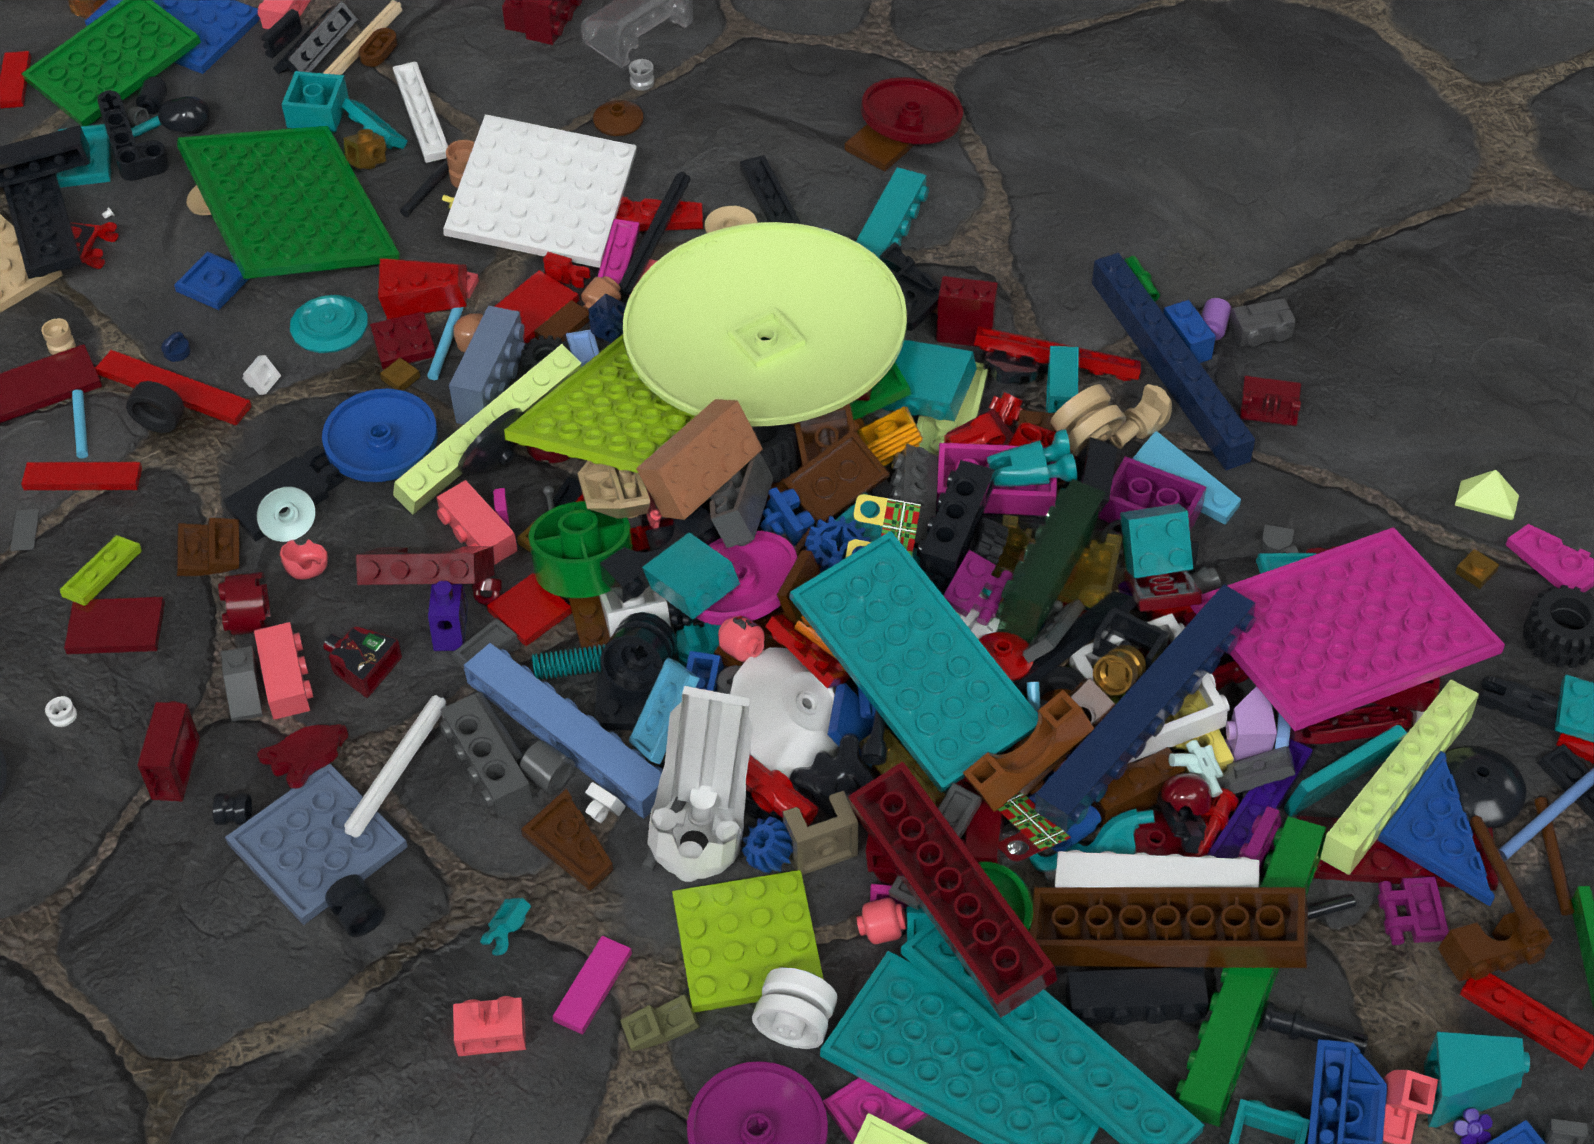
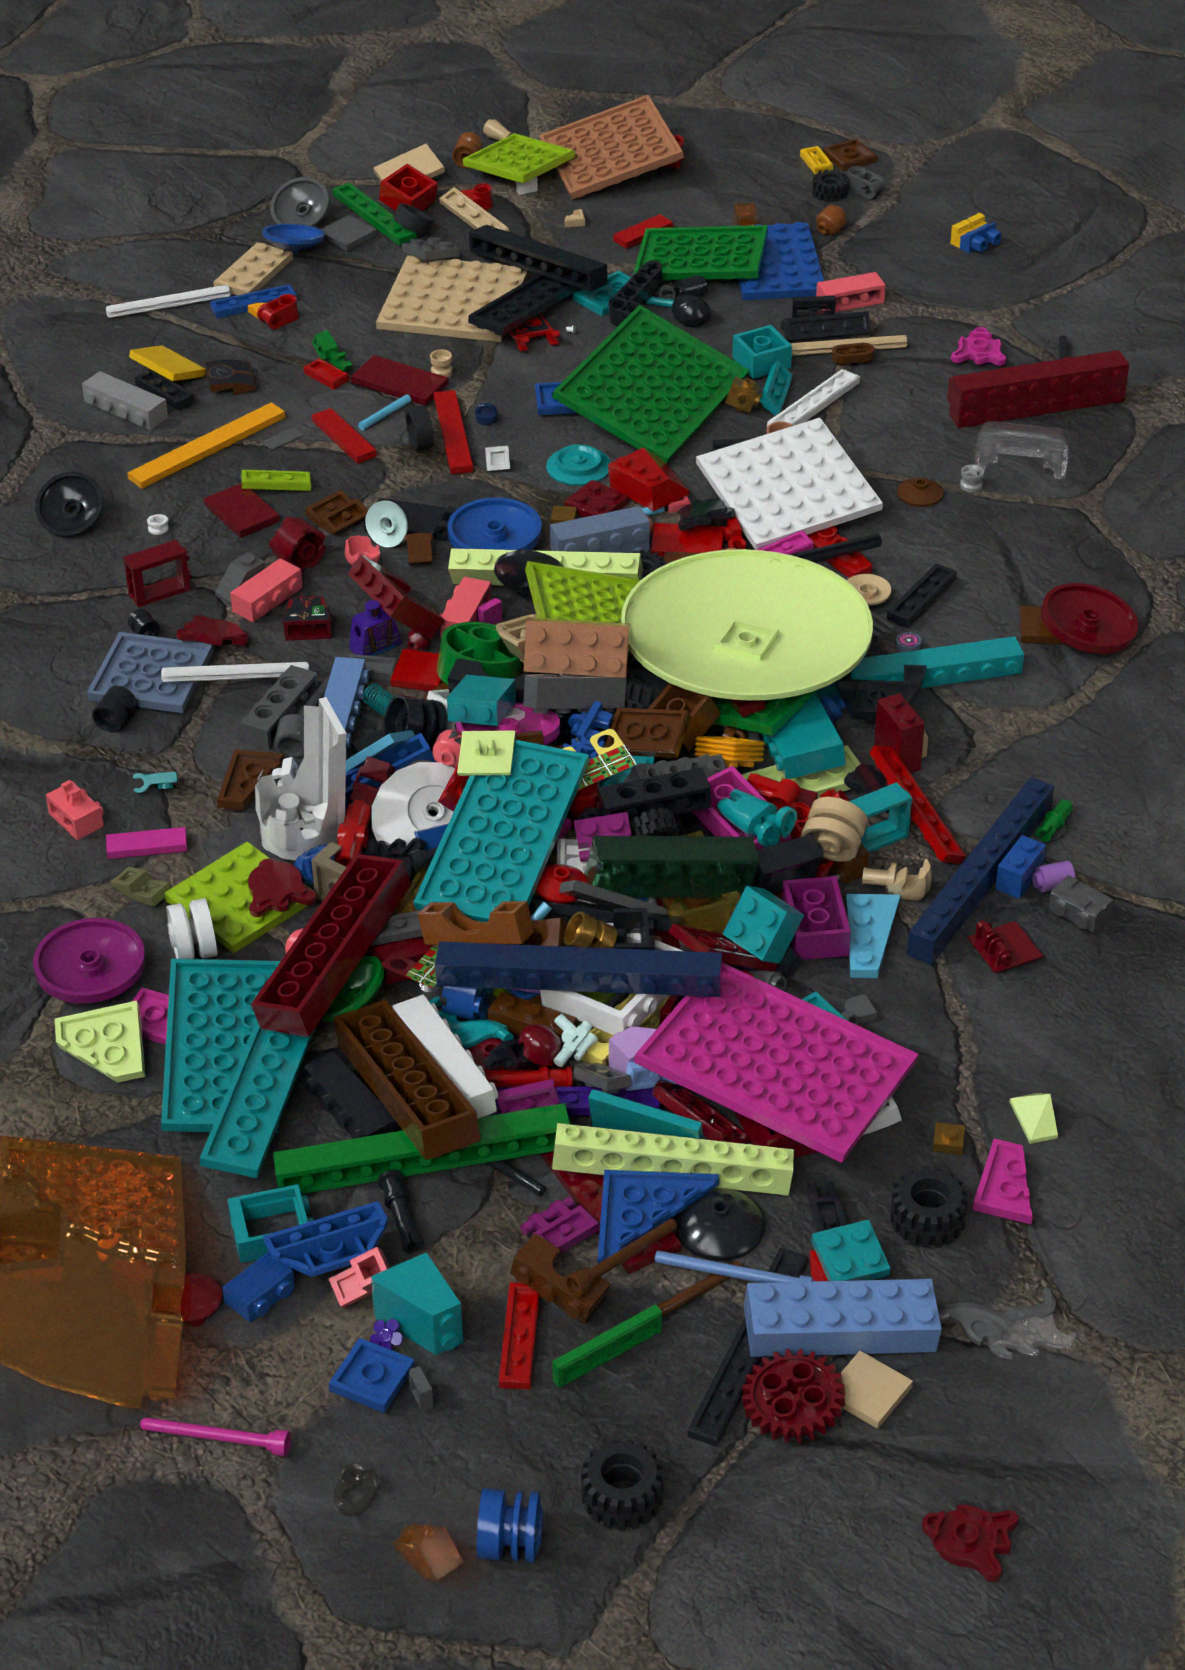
camera: 55 degrees right, 10 degrees down
(343, 510) = (419, 548): none -> reddish brown tile
(513, 271) = (703, 512): none -> black tile
(777, 898) = (275, 885): none -> dark red tile
(814, 608) = (486, 753): none -> yellowish green piece

